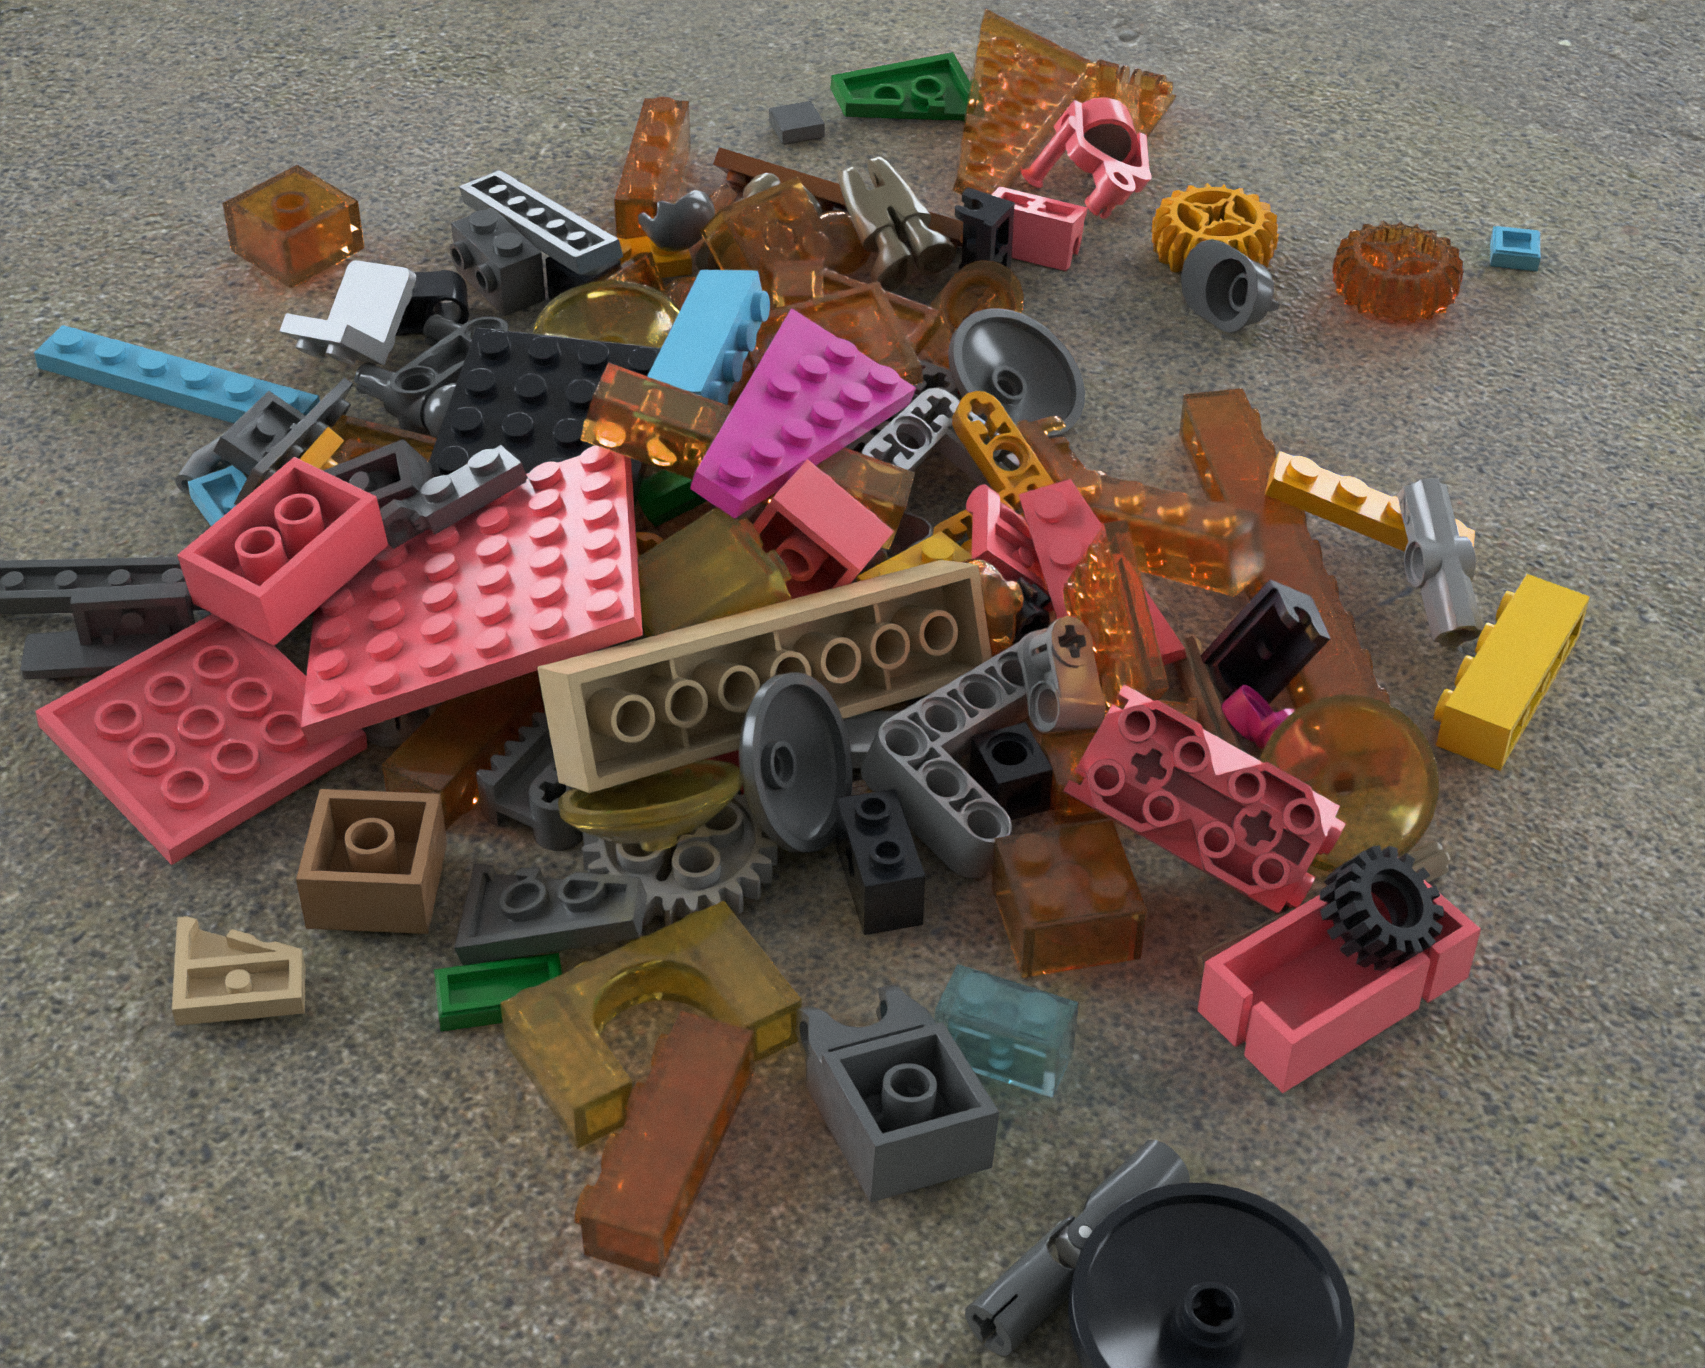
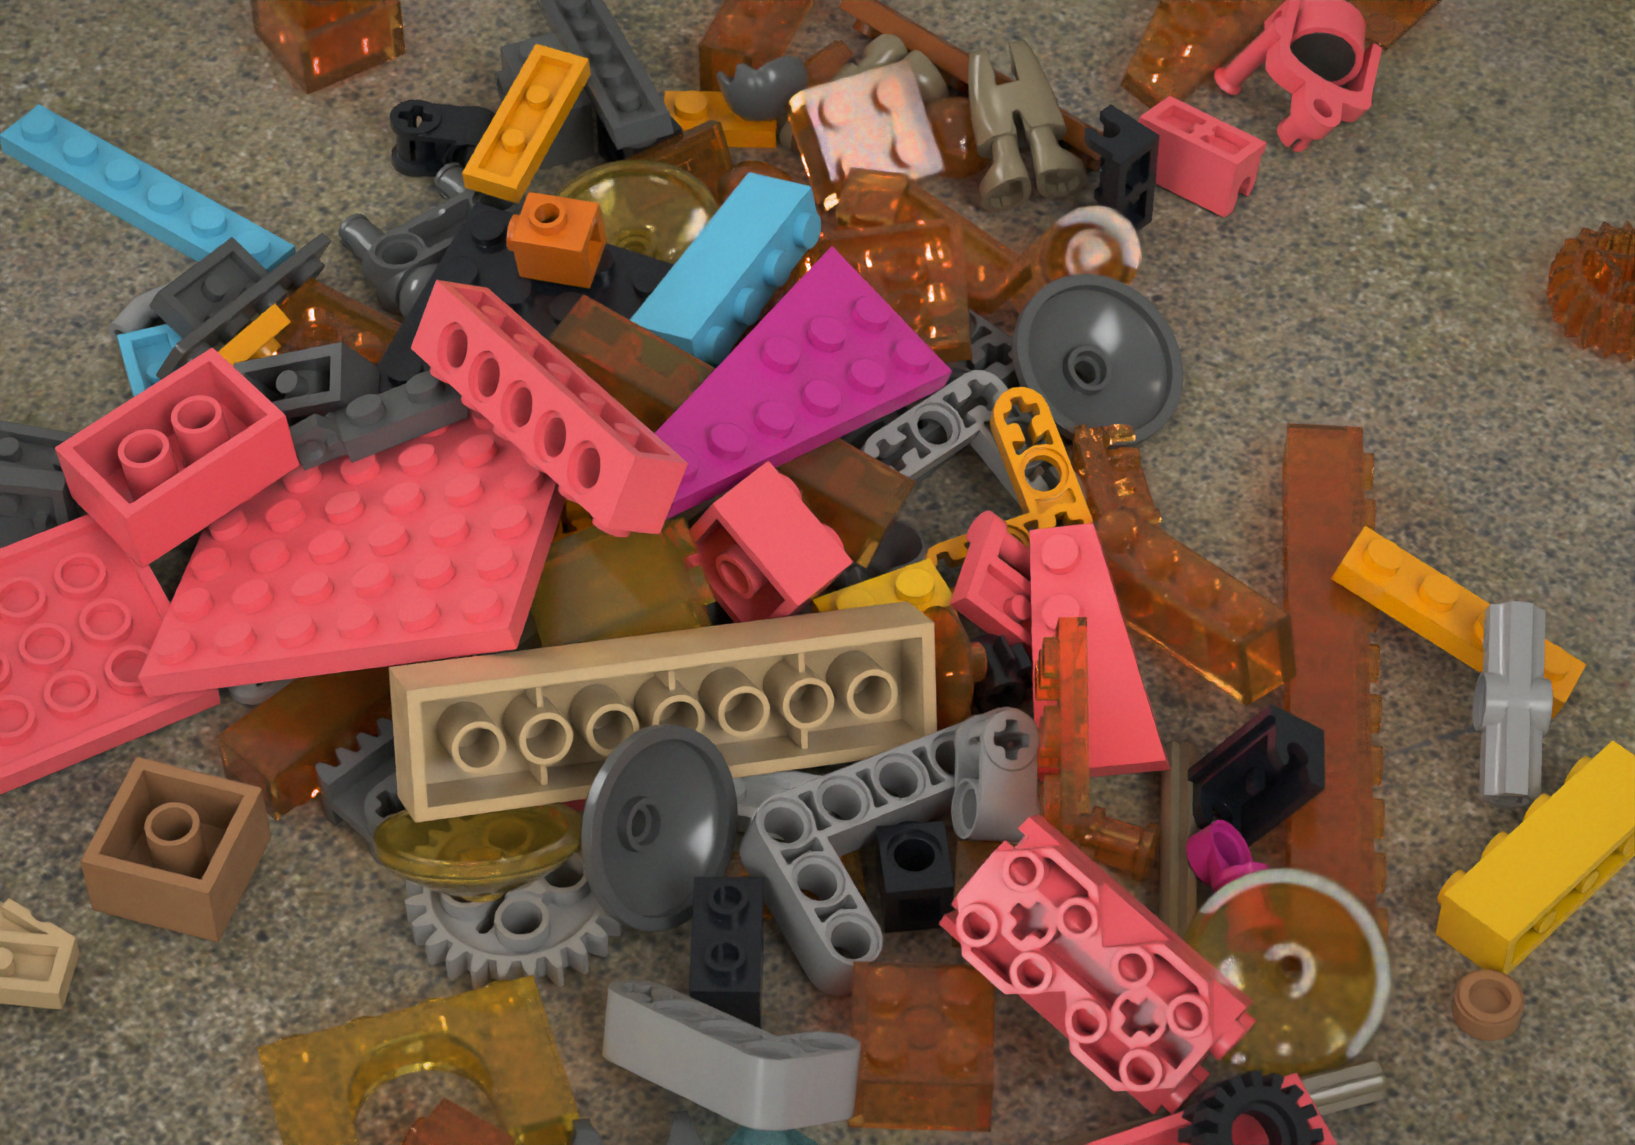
camera: 15 degrees right, 5 degrees up
(361, 318) = (363, 159): bracket -> none
(473, 992) = (246, 1019): green tile -> none
(496, 269) = (526, 123): none -> light orange plate
(543, 915) = (341, 948): dark grey wing -> none
(560, 337) = (557, 239): none -> orange brick
(612, 448) = (549, 409): none -> coral brick
(917, 931) = (728, 1062): none -> light grey beam
(1217, 215) = (1419, 199): light orange gear -> none
(1226, 286) = (1404, 281): dark grey piece -> none
(1501, 787) = (1488, 1005): none -> medium nougat tile

